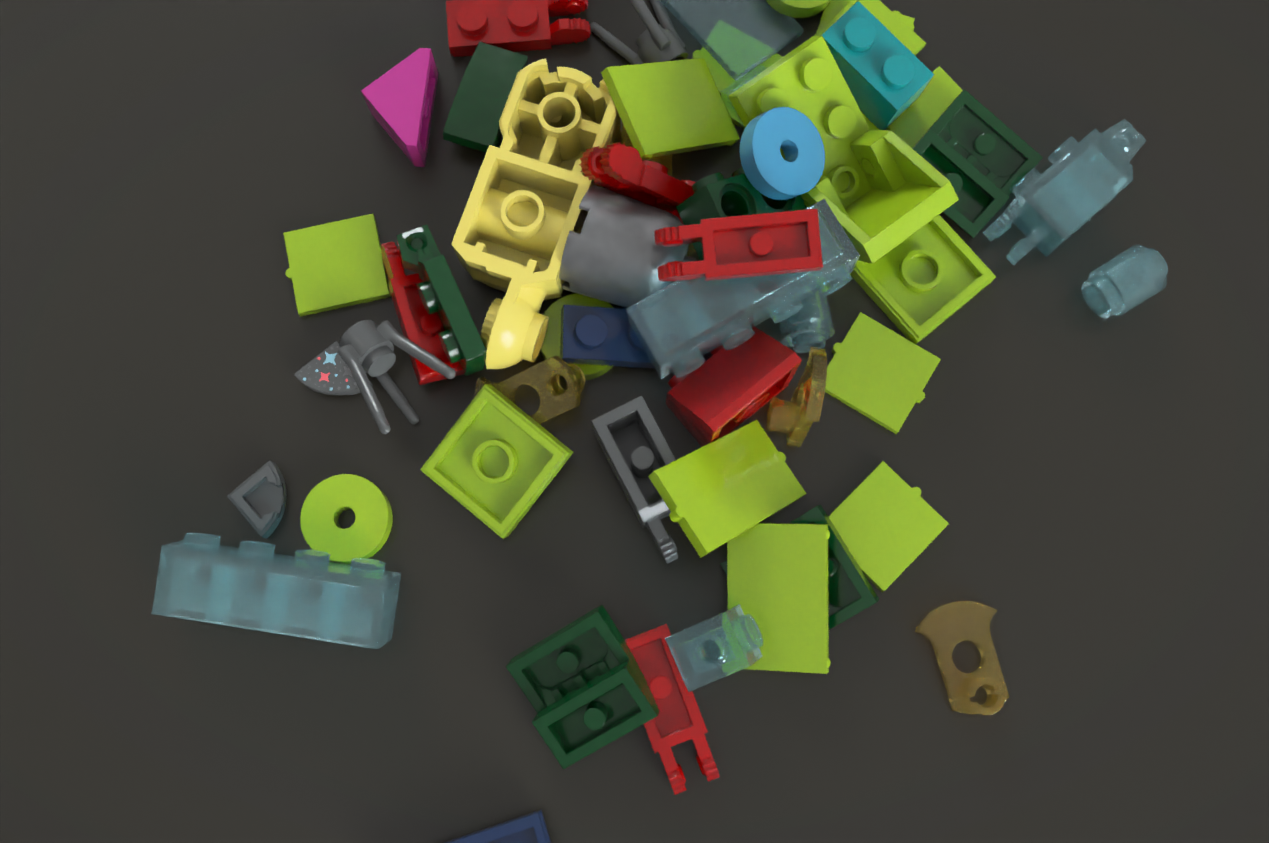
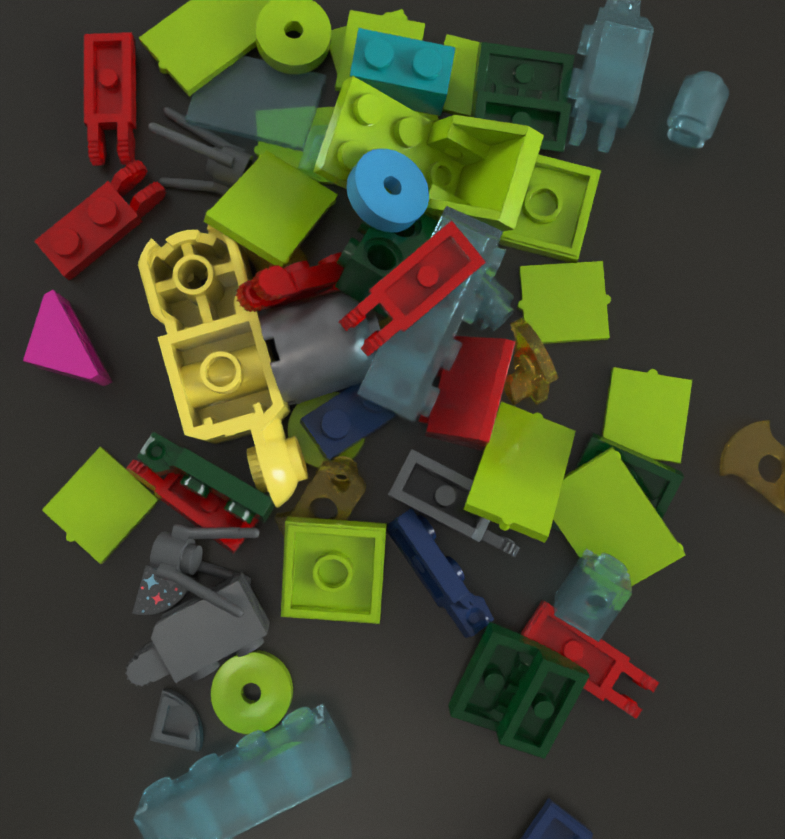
camera: 30 degrees left, 5 degrees up
(340, 431) = (199, 634): none -> dark grey hinge
(482, 97) = (121, 297): dark green slope -> none
(587, 531) = (439, 573): none -> dark blue hinge

